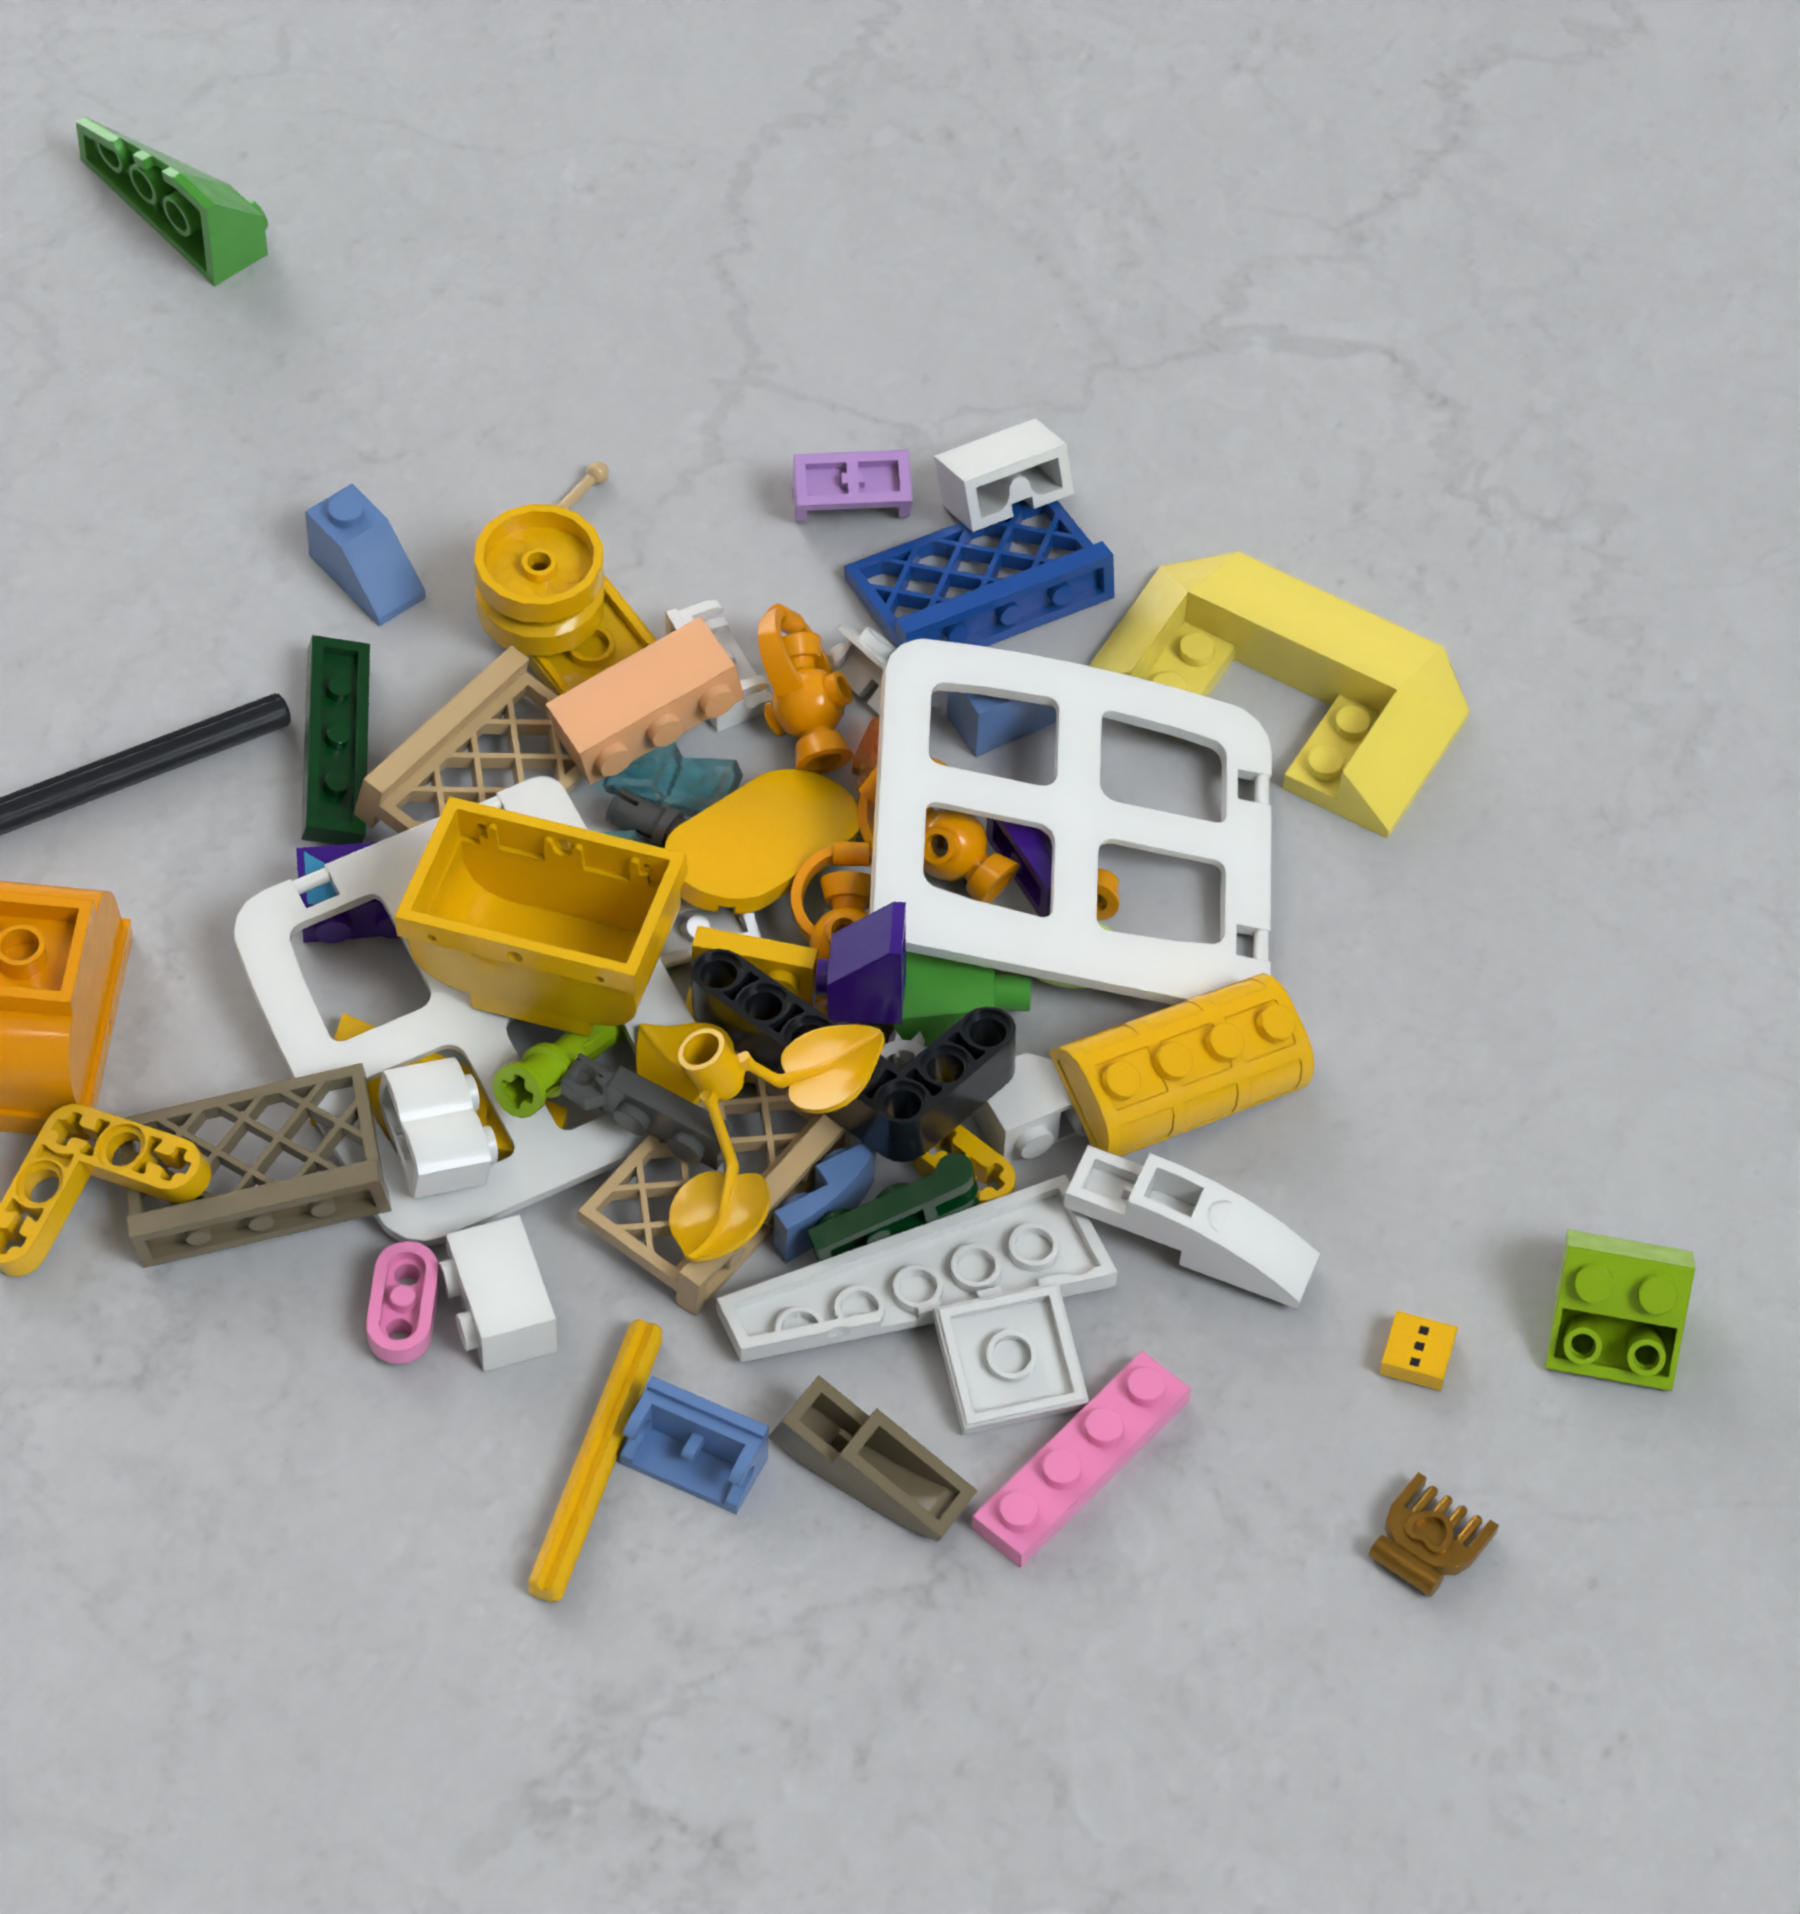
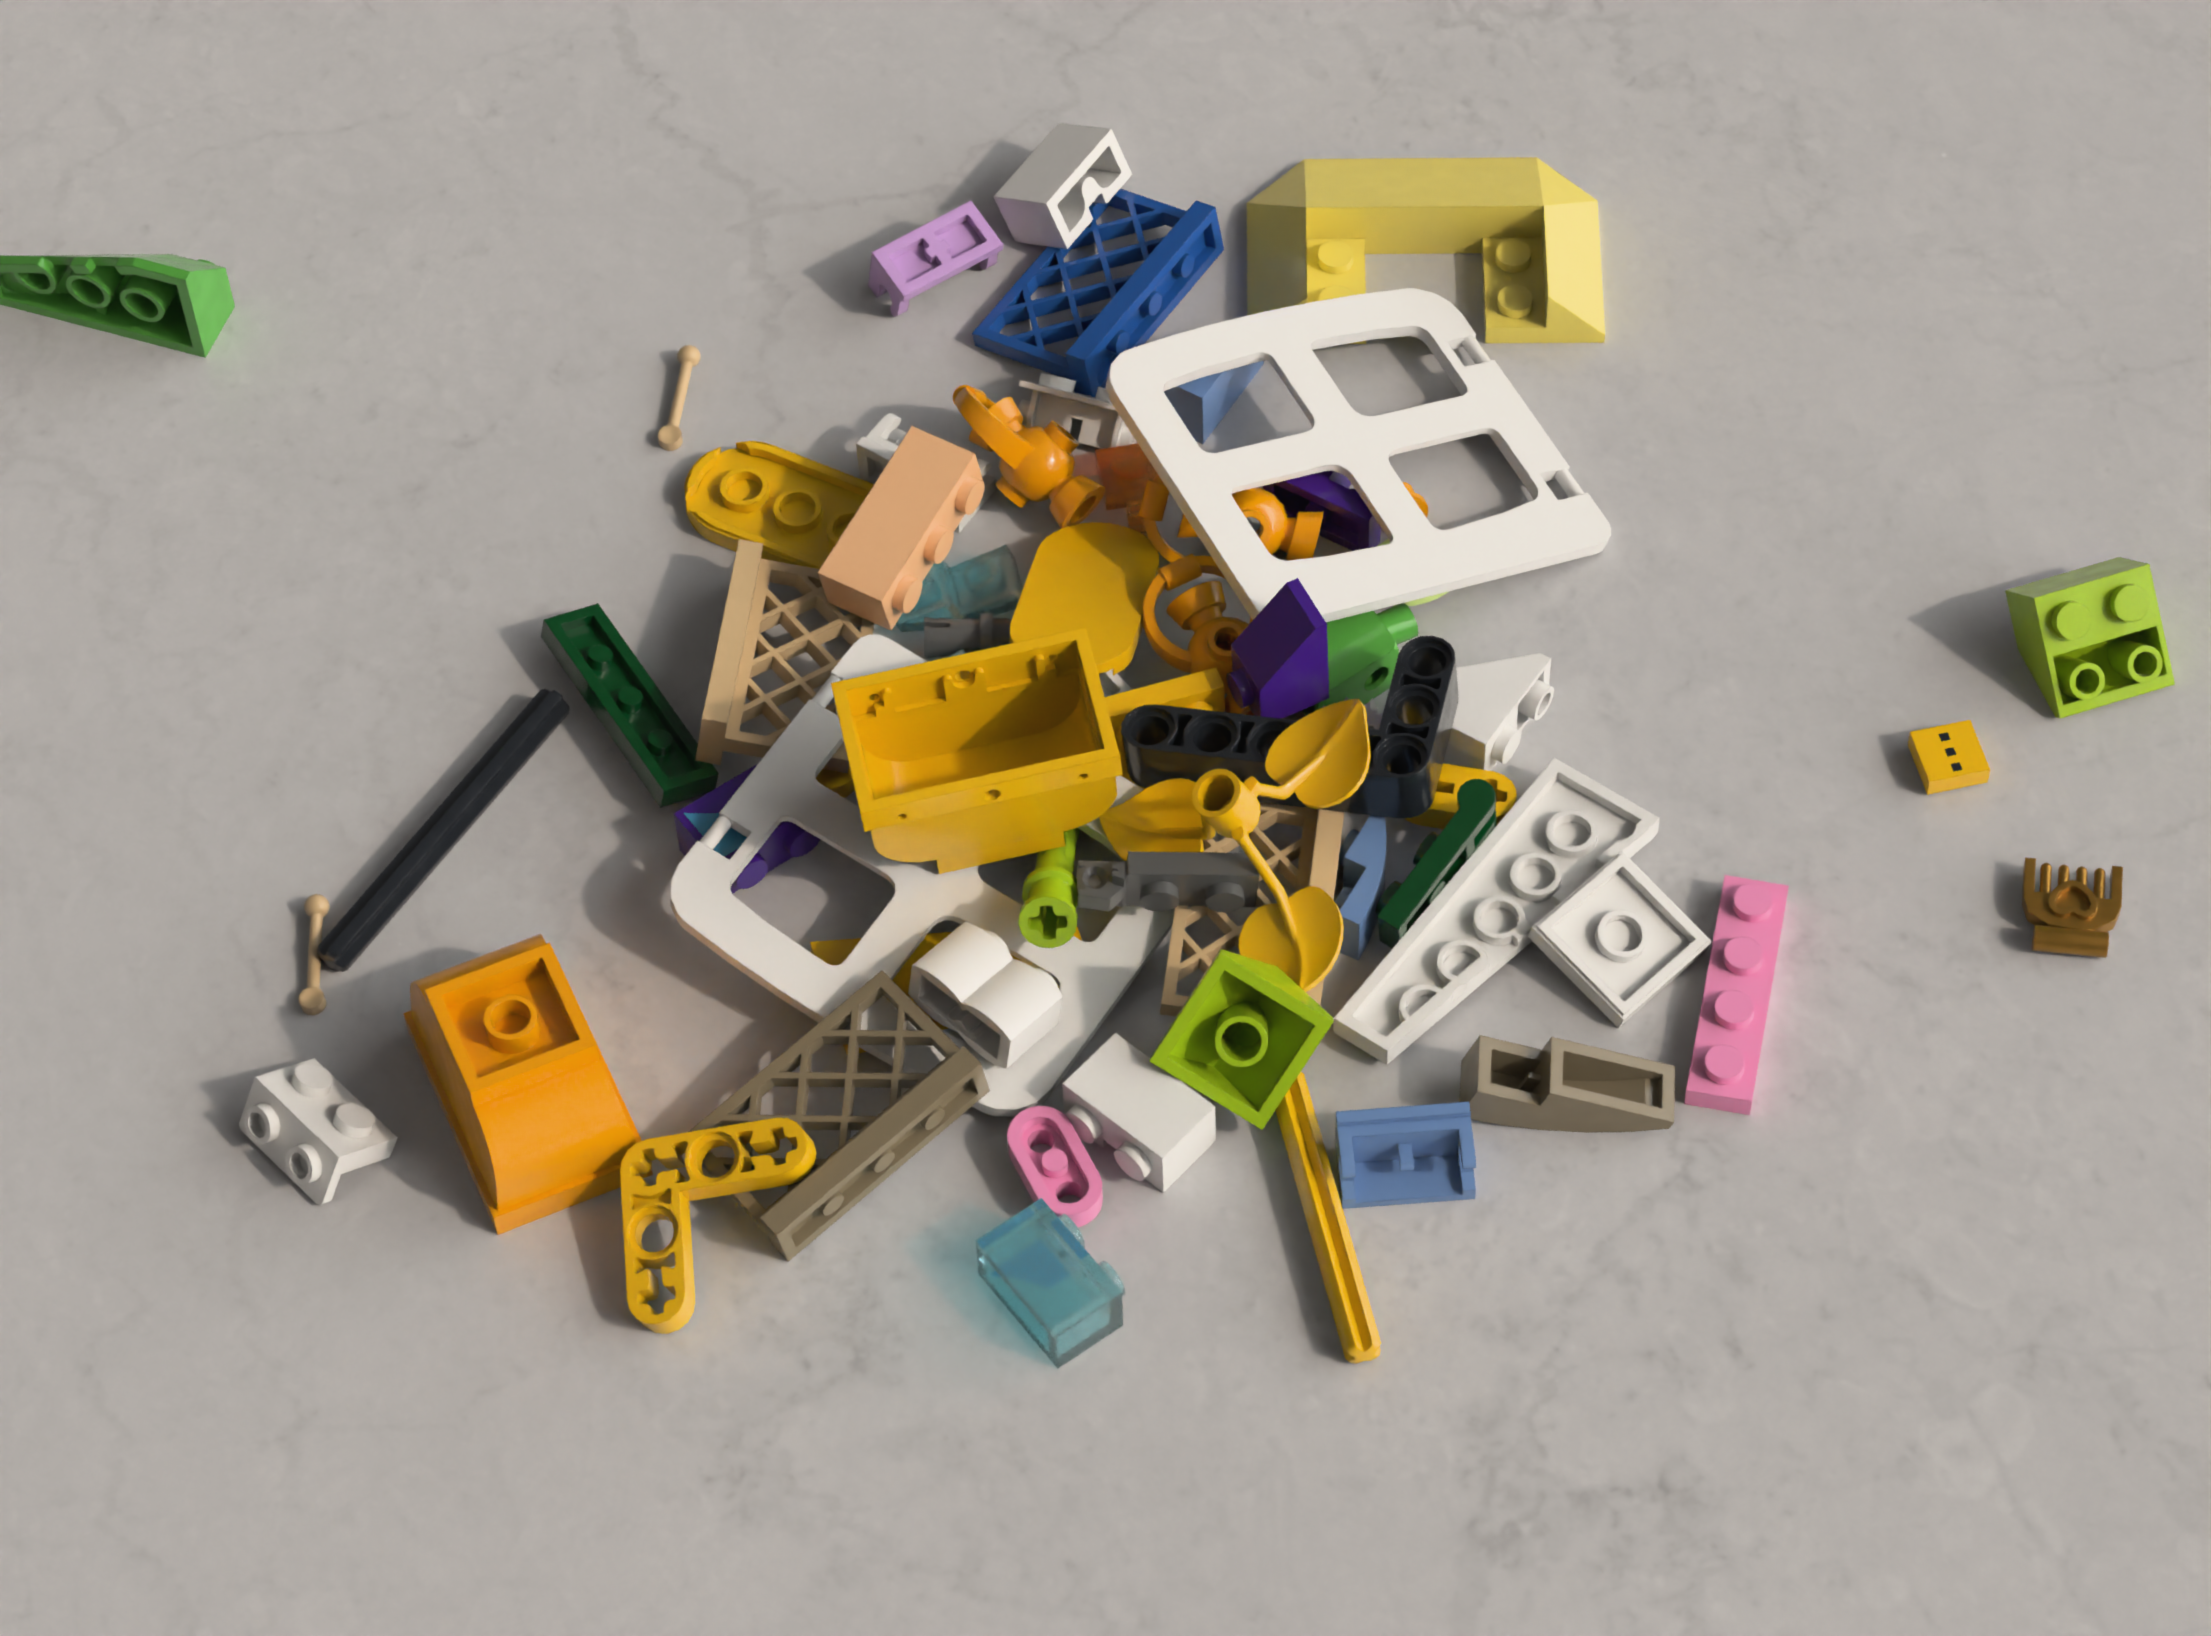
camera: 25 degrees left, 0 degrees up
(328, 1395) = (1051, 1281): none -> clear light blue brick
(362, 554) = (532, 528): medium blue slope -> none
(539, 579) = (725, 468): yellow wheel -> none
(615, 1269) = (1243, 1036): none -> lime slope
(1186, 1065) = (1593, 610): yellow container -> none
(1204, 1220) = (1695, 733): white slope -> none

